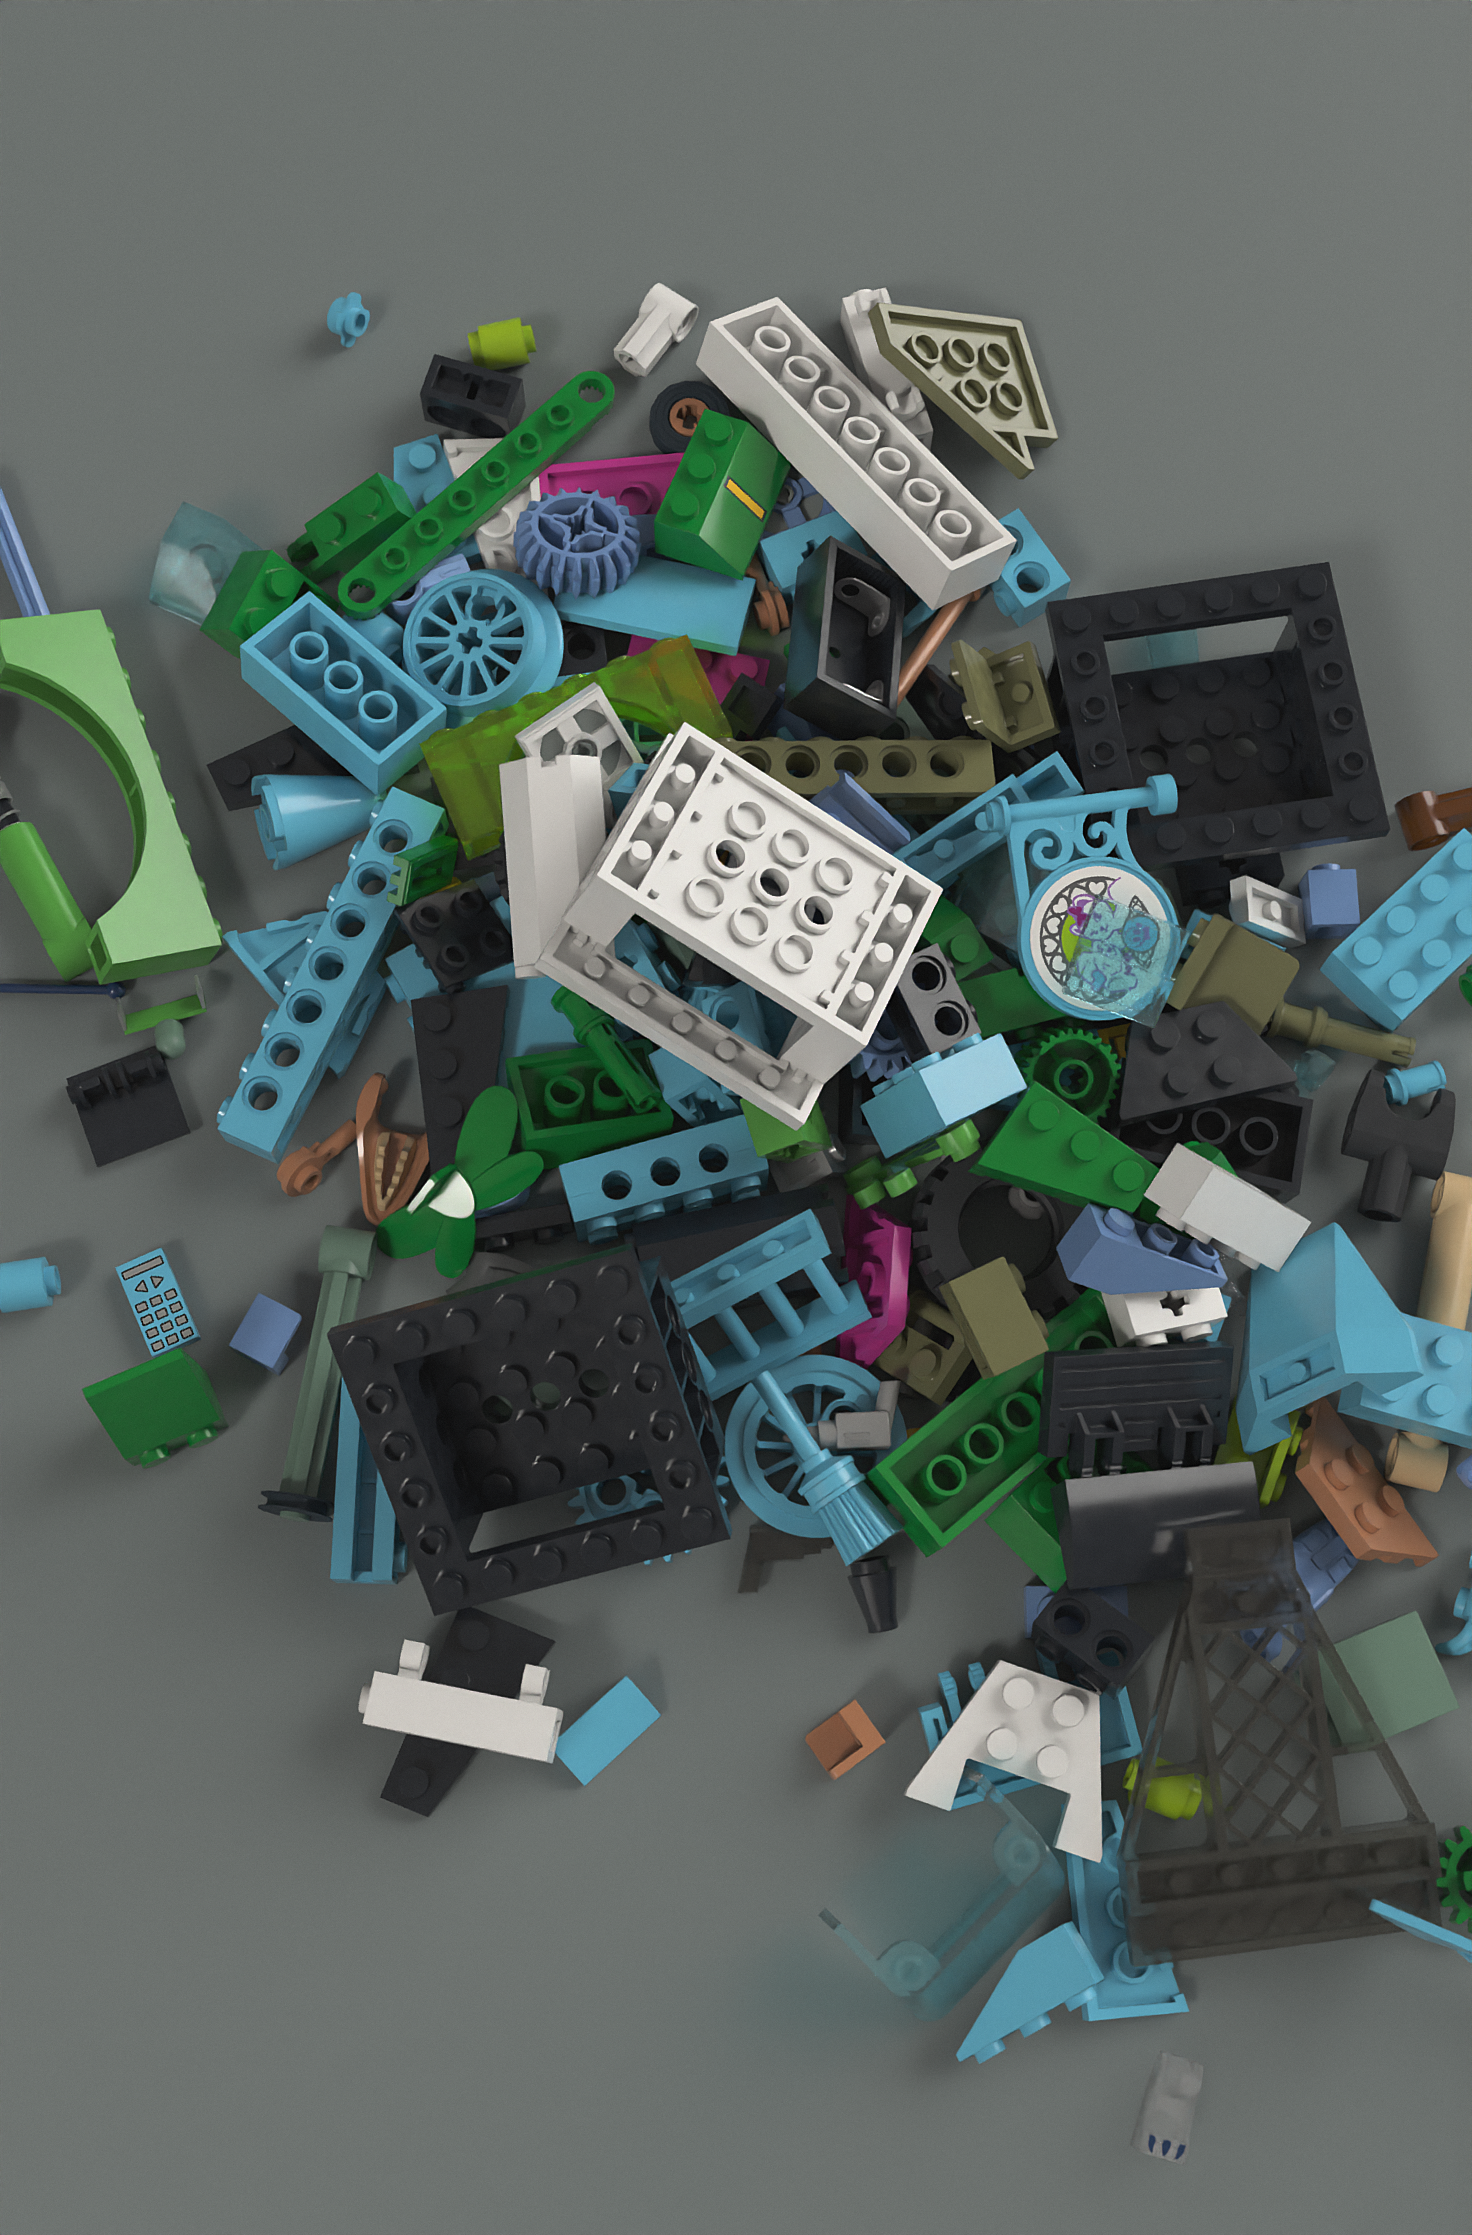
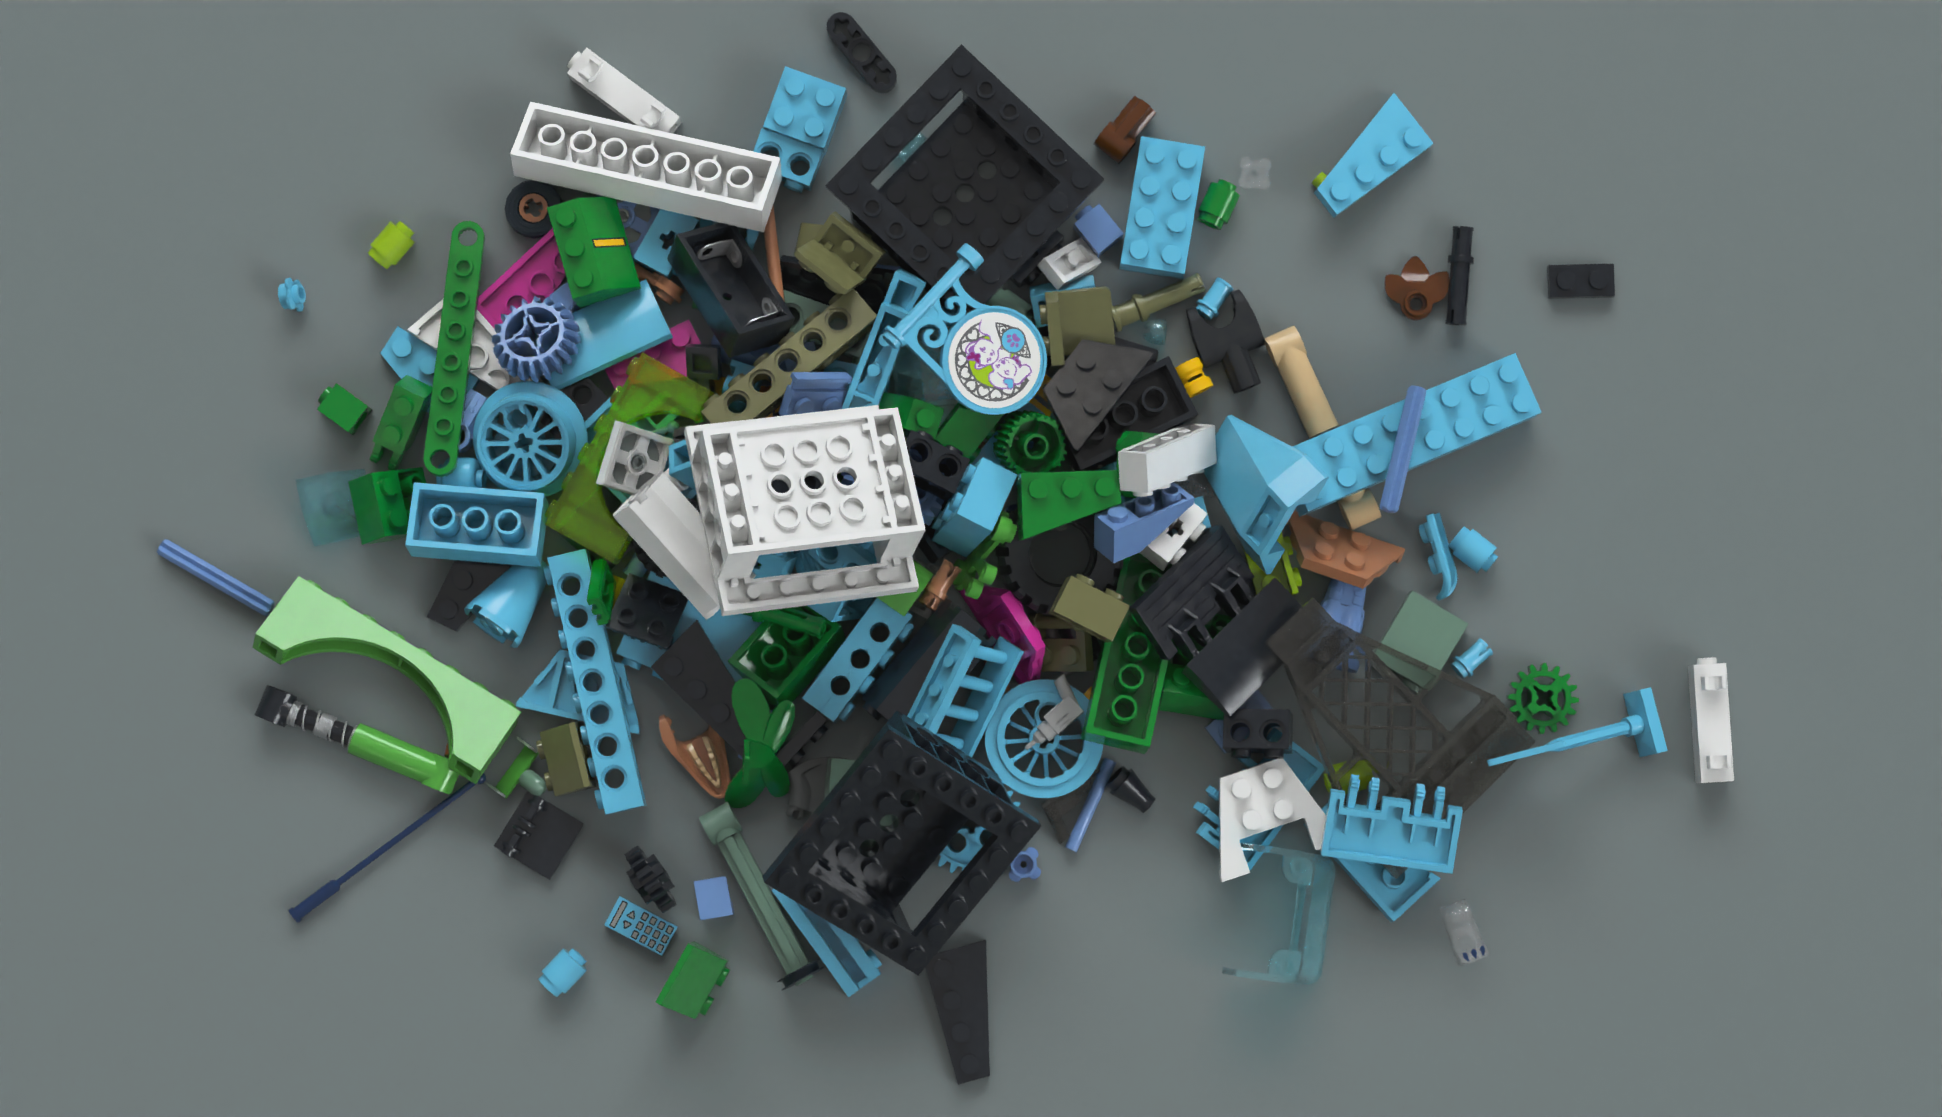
camera: 35 degrees left, 10 degrees up
(209, 1250) = (650, 879): none -> black gear
(226, 1037) = (565, 759): none -> olive slope
(302, 1169) = (660, 798): nougat plate -> none
(303, 475) = (343, 408): none -> green brick
(461, 1715) = (970, 1013): white brick -> none
(472, 398) = (405, 293): black brick -> none
(605, 1730) = (1046, 964): medium azure slope -> none
(661, 320) = (471, 159): white piece -> none
(675, 1598) = (1030, 870): none -> medium blue plate
(795, 1583) = (1090, 805): none -> medium blue bar
(828, 1163) = (939, 586): none -> nougat pin
(832, 1484) = (1069, 754): medium azure piece -> none
(844, 1740) = (1170, 876): nougat panel -> none
(974, 372) = (677, 65): olive wing -> none
(1037, 1980) = (1353, 922): medium azure slope -> none
(1087, 526) = (805, 108): none -> medium azure brick
(1125, 961) = (1017, 363): clear light blue slope -> none
(1173, 1898) = (1391, 833): none -> medium azure hinge
(1204, 502) = (870, 76): none -> black beam
(1322, 1154) = (1191, 370): none -> yellow wheel
(1428, 1756) = (1471, 659): none -> medium azure pin

